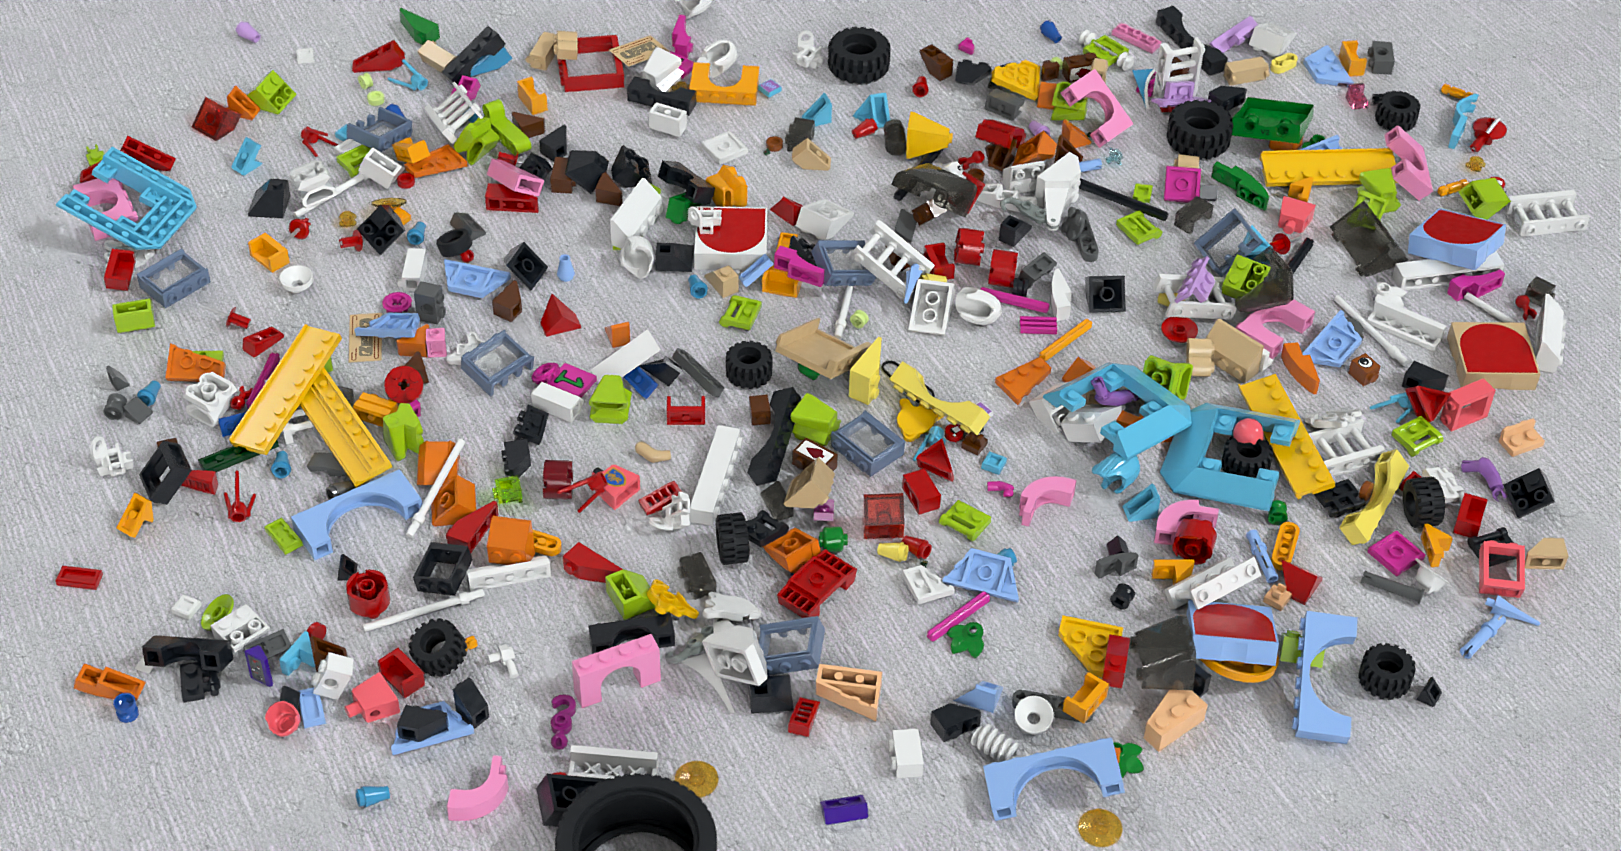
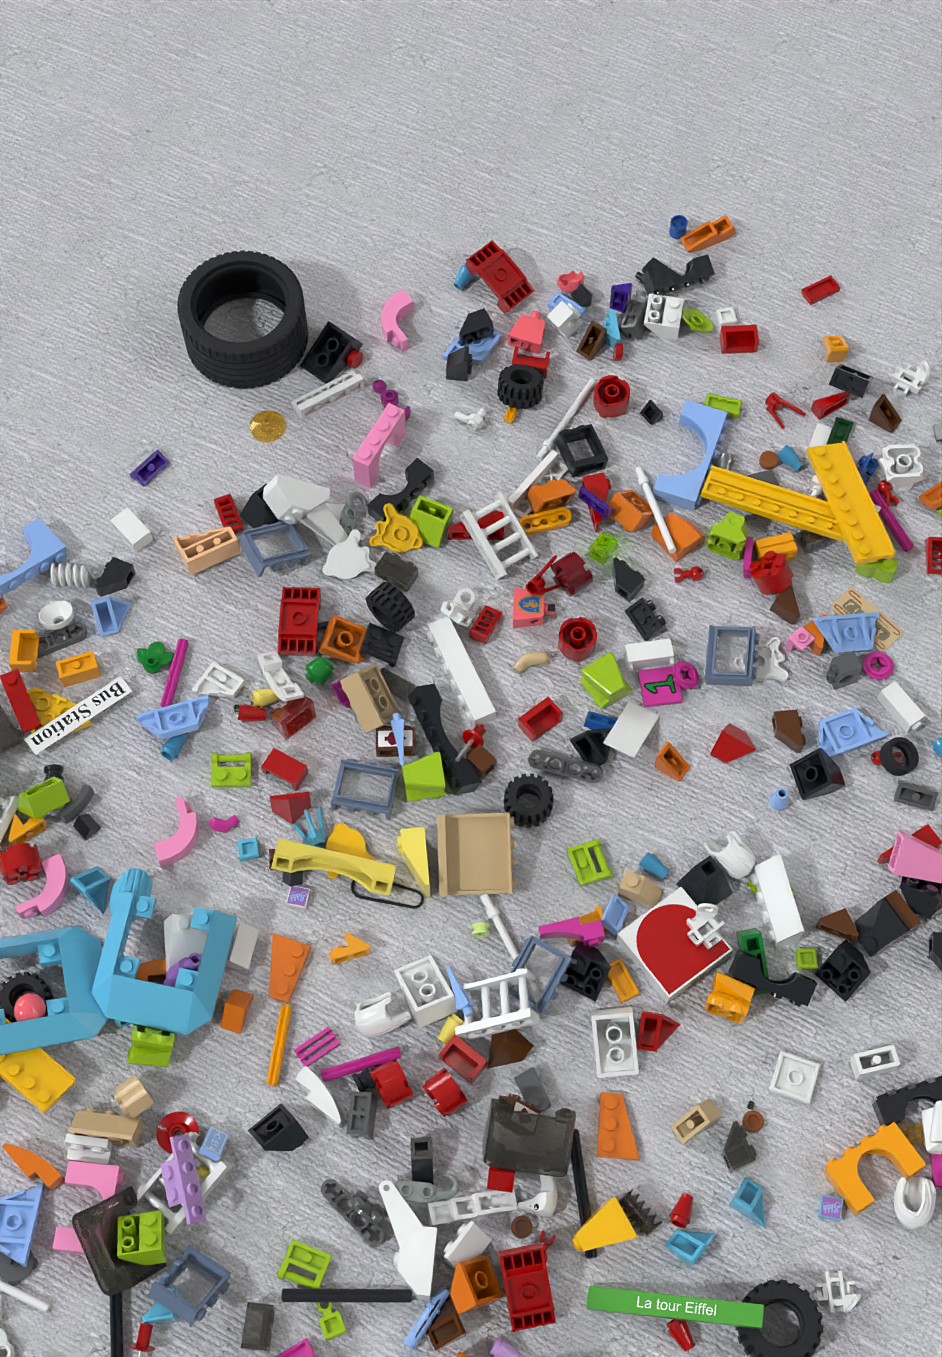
camera: 145 degrees right, 20 degrees up
(200, 578) = (739, 339): none -> red panel
(229, 473) = (820, 435): none -> white sticker
(298, 476) = (768, 460): none -> dark orange tile
(345, 759) = (500, 275): none -> red plate
(456, 433) = (694, 574): none -> red arm
(480, 510) = (595, 502): none -> dark purple slope
(601, 438) = (577, 638): none -> red brick
(603, 544) = (489, 551): none -> white fence
(751, 425) = (472, 738): none -> red piece
(808, 450) = (398, 730): none -> light blue piece
(868, 185) = (614, 1129): none -> orange wing
(874, 546) = (277, 678): none -> white slope
(916, 86) = (676, 1307): none -> bright green tile
(967, 356) = (355, 949): none -> light orange slope
(1045, 658) = (78, 669): none -> light orange panel
(1070, 625) = (77, 715): none -> white sticker
(1146, 569) = (43, 798): none -> lime slope
(1157, 303) = (213, 1143): none -> light blue tile

